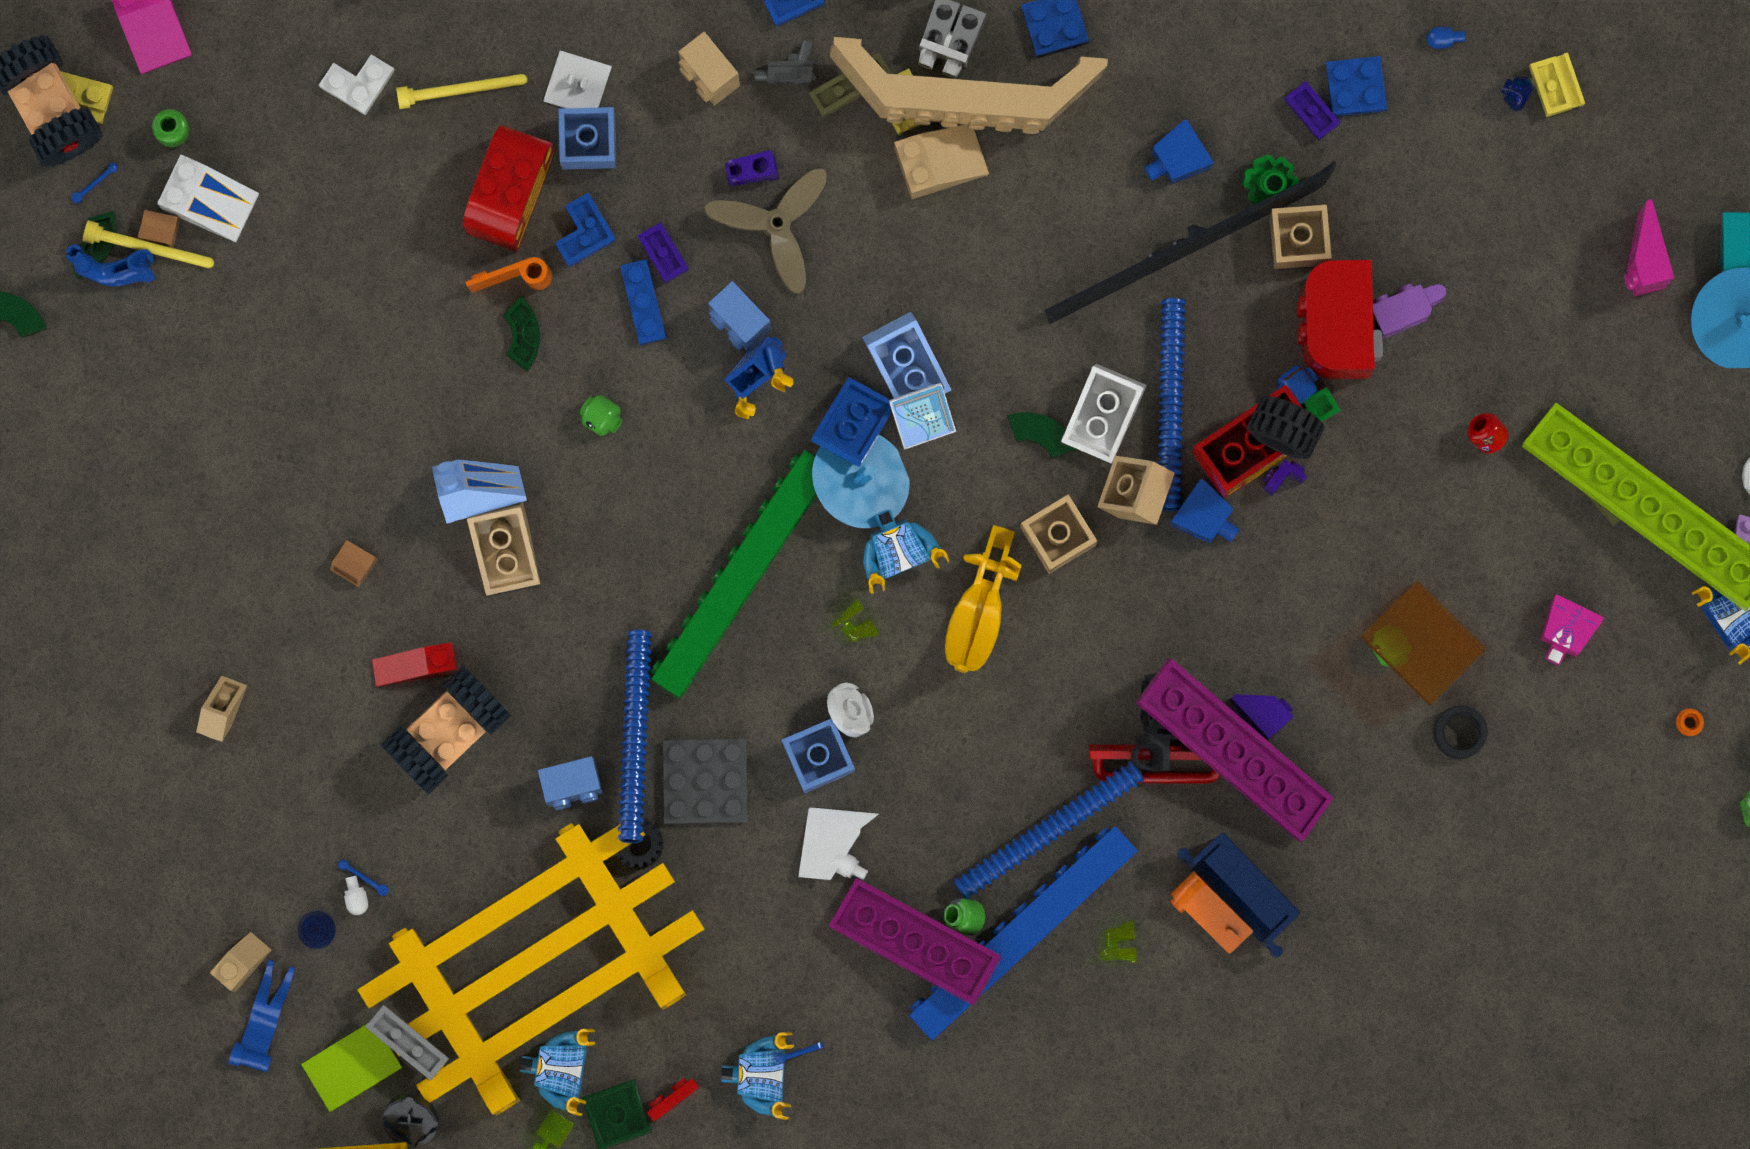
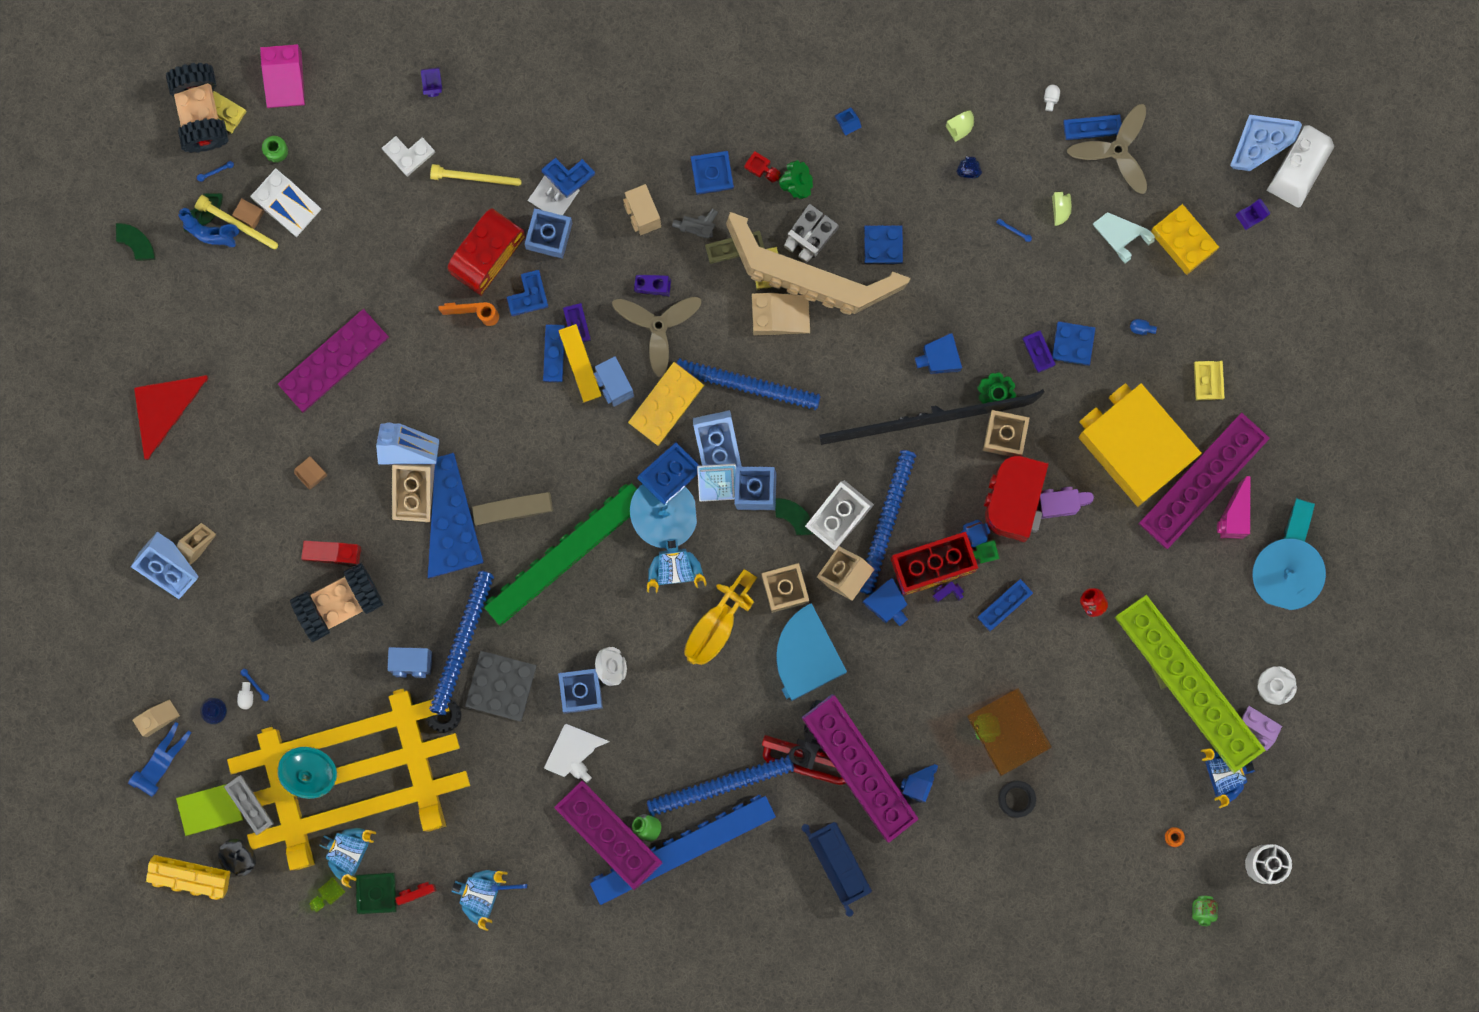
camera: 15 degrees right, 0 degrees up
(119, 531) = (161, 407): none -> red tile
(191, 748) = (165, 566): none -> light blue slope
(338, 399) = (333, 360): none -> magenta plate
(477, 964) = (309, 765): none -> teal dish
(525, 334) = (469, 352): dark green tile -> none
(574, 587) = (452, 529): none -> blue wing
(593, 57) = (568, 181): none -> blue plate
(601, 415) = (503, 421): bright green head -> none
(649, 533) = (512, 509): none -> dark tan slope
(683, 305) = (579, 363): none -> yellow tile
(755, 369) = (613, 420): blue torso -> none
(821, 326) = (666, 403): none -> yellow plate
(853, 633) = (634, 615): clear neon green piece -> none
(924, 269) = (751, 385): none -> blue piece
(977, 409) = (755, 488): none -> medium blue brick
(1112, 935) = (741, 870): clear neon green piece -> none
(1114, 618) = (806, 655): none -> dark azure brick
(1210, 912) = (813, 872): orange door -> none
(1263, 712) = (888, 748): dark purple slope -> none
(1285, 427) = (956, 561): black tyre -> none
(1321, 749) = (919, 784): none -> blue slope
(1366, 472) = (1005, 605): none -> blue plate
(1484, 197) = (1137, 442): none -> yellow brick
(1517, 92) = (1181, 378): clear blue cone -> none
(1568, 628) = (1110, 750): dark pink torso -> none
(1589, 224) = (1204, 481): none -> magenta plate

